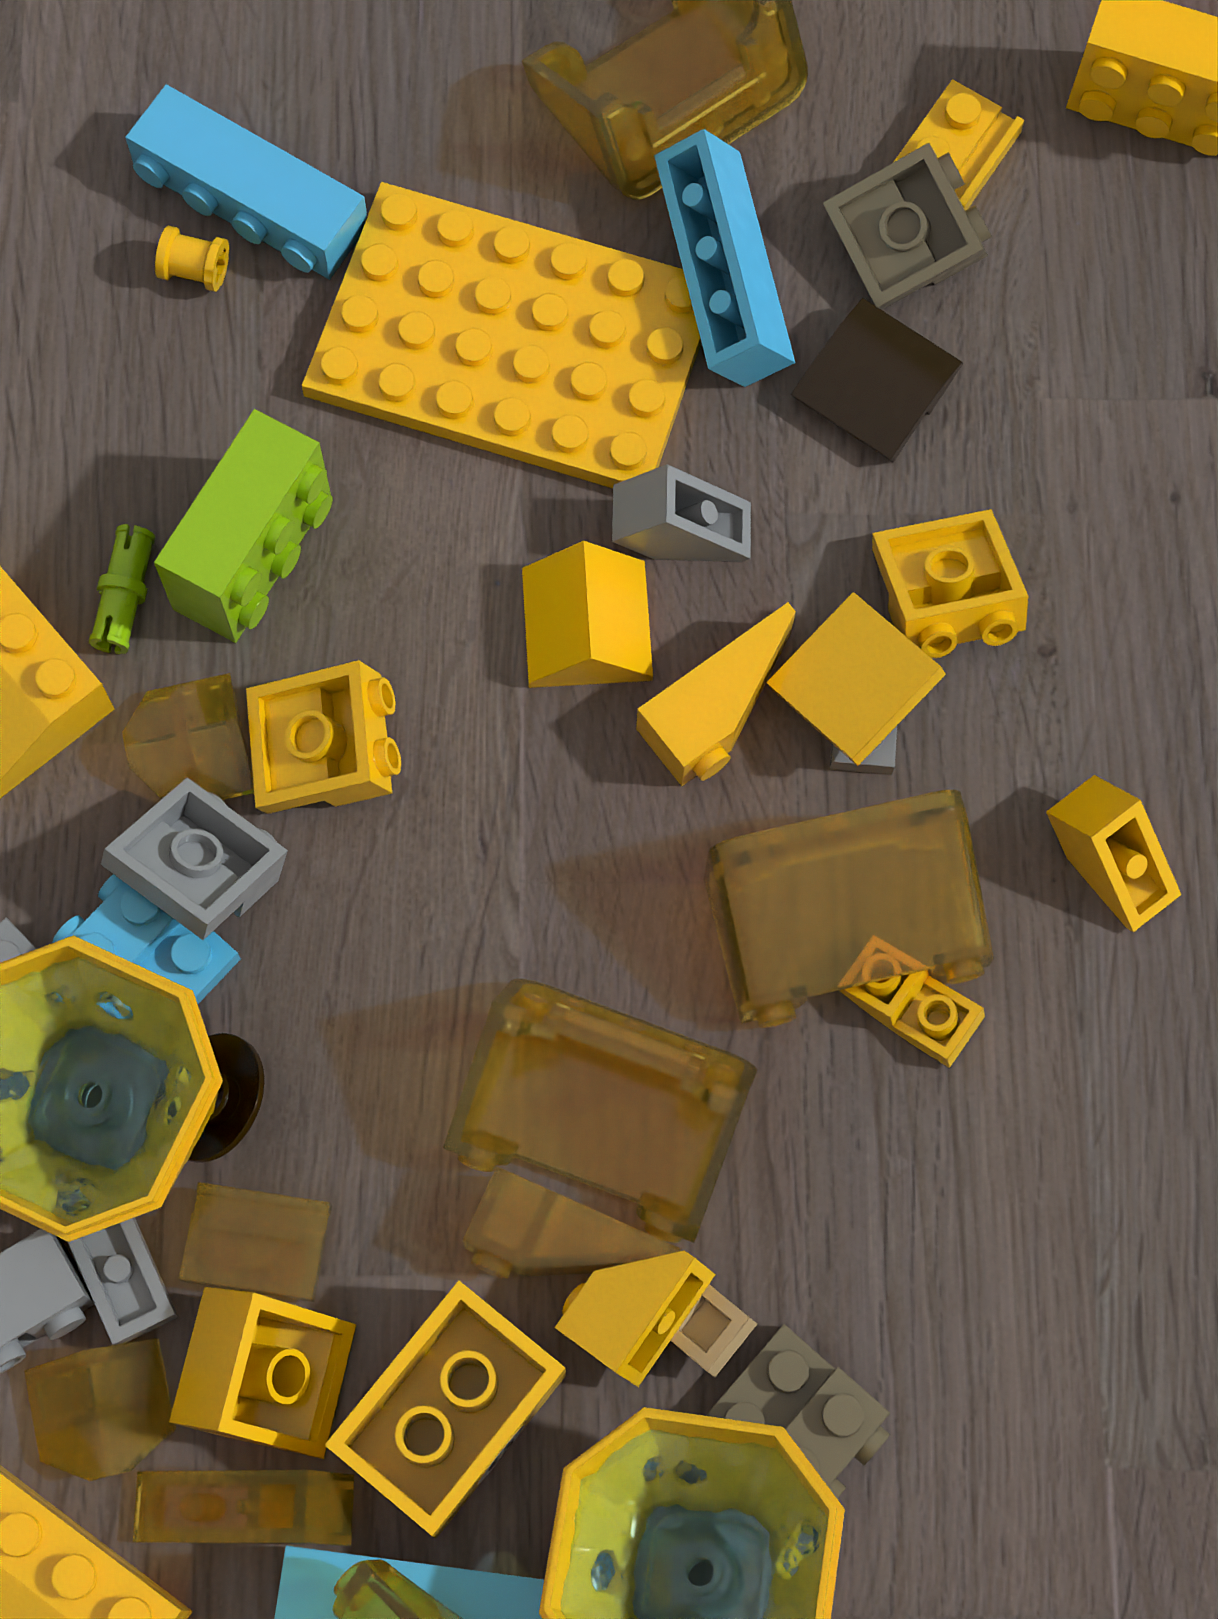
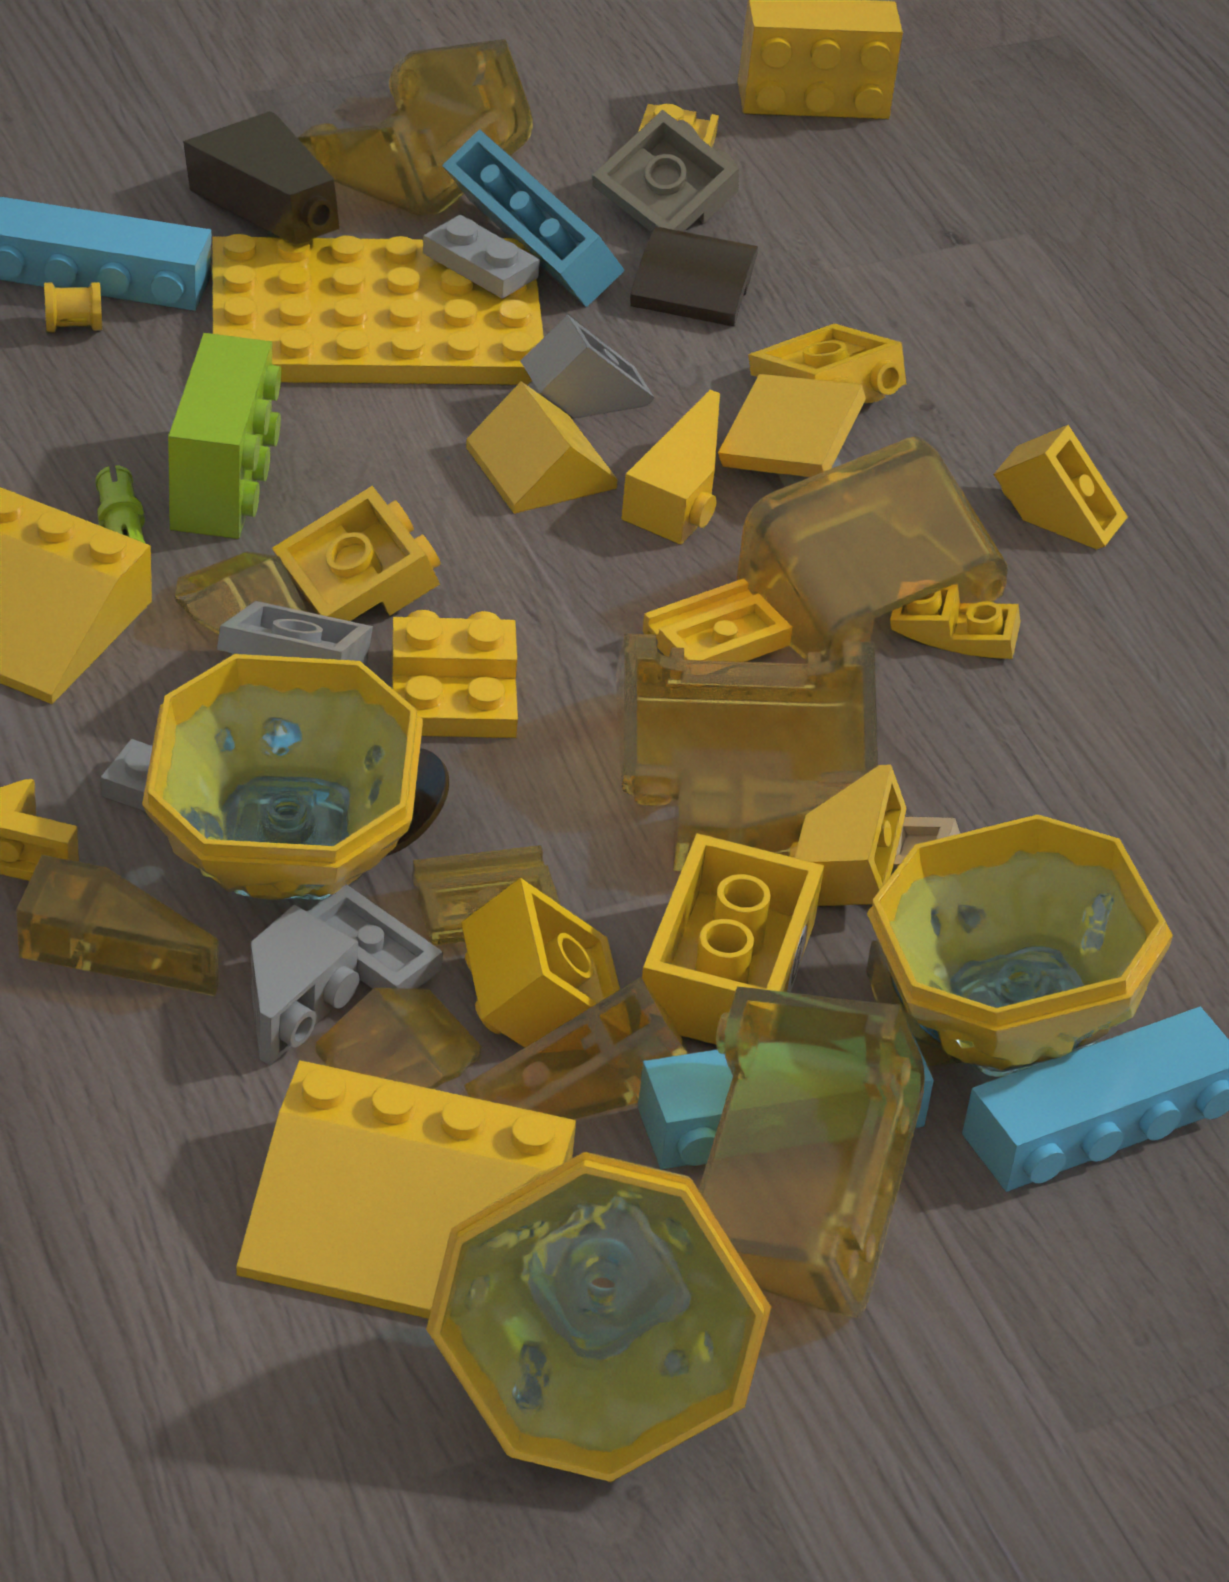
camera: 25 degrees left, 30 degrees down
(354, 925) = (457, 673): none -> yellow plate
(462, 109) = (264, 177): none -> dark brown slope
(640, 308) = (481, 256): none -> light grey plate
(649, 942) = (719, 625): none -> yellow plate

